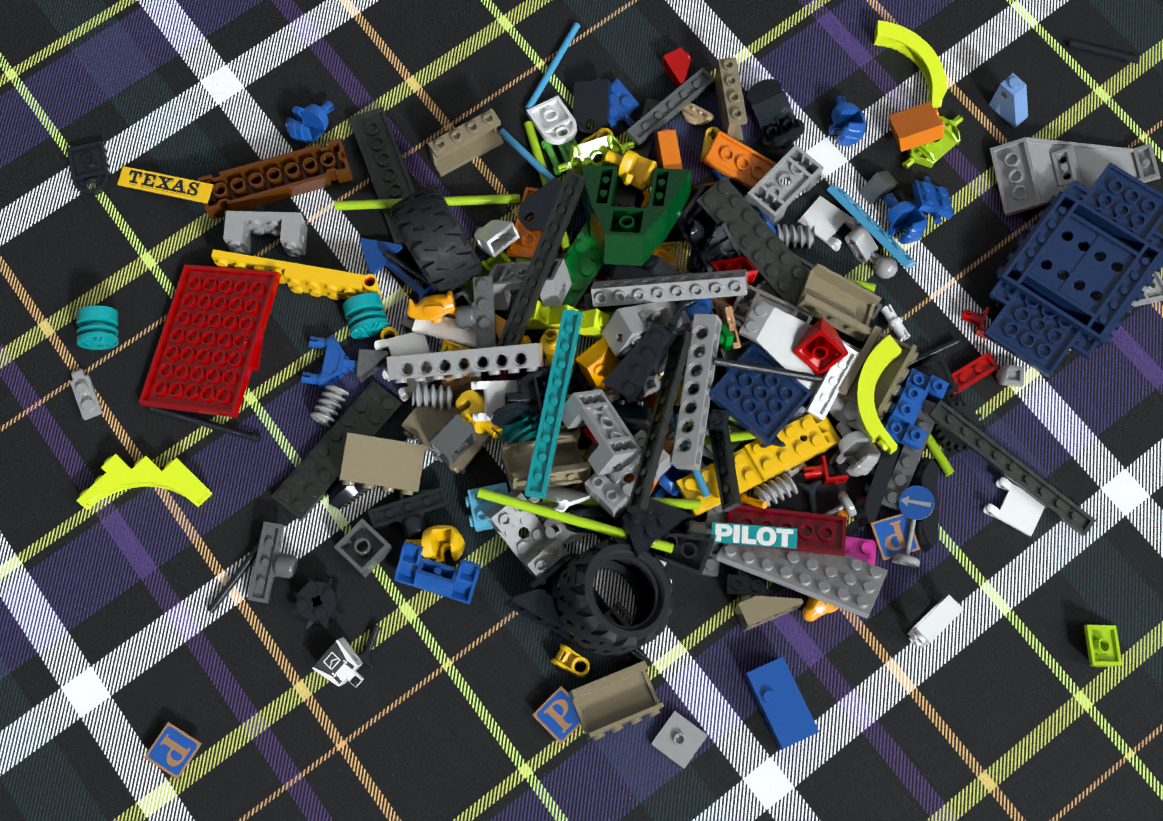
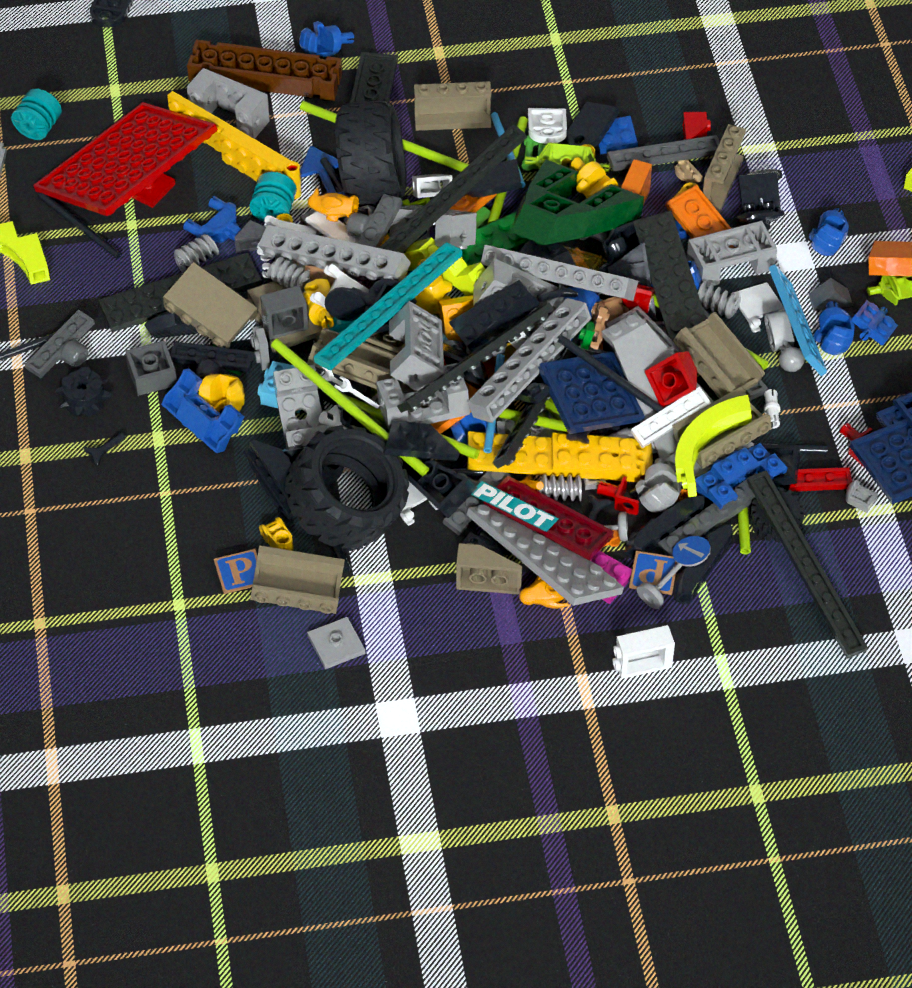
camera: 30 degrees right, 20 degrees down
(165, 184) = (166, 36): yellow sticker -> none
(340, 664) = (70, 443): torso -> none
(448, 480) = (260, 344): none -> light grey plate
(552, 66) = (579, 85): dark azure piece -> none
(781, 703) = (451, 654): blue brick -> none
(1017, 508) = (794, 609): white flag -> none
(1103, 645) = (804, 753): lime slope -> none

